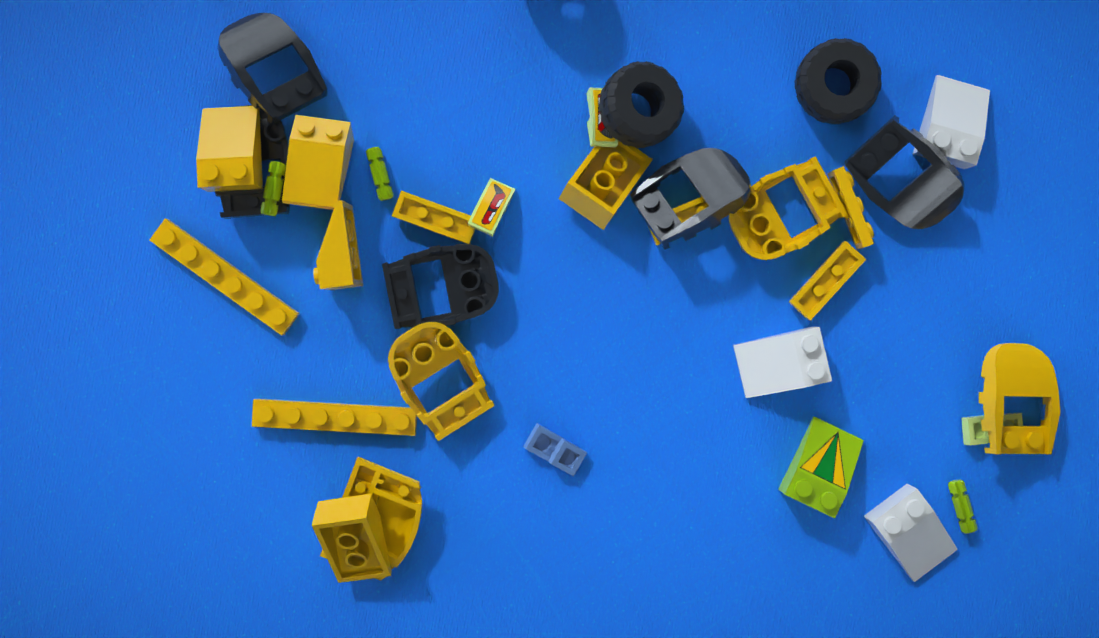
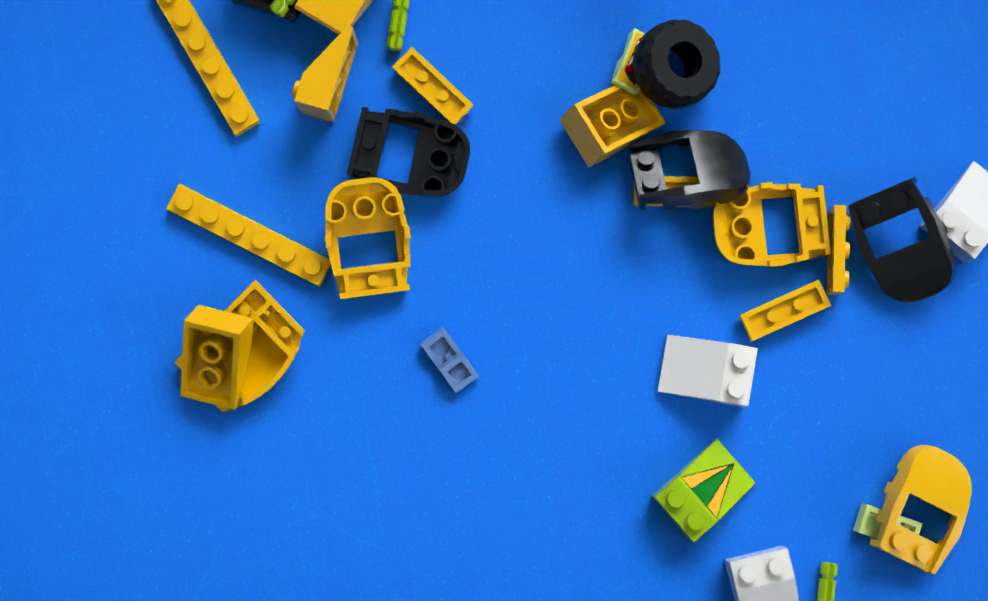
camera: 20 degrees right, 5 degrees down
(491, 207) = (490, 99): slope -> none
(860, 68) = (893, 105): black tyre -> none

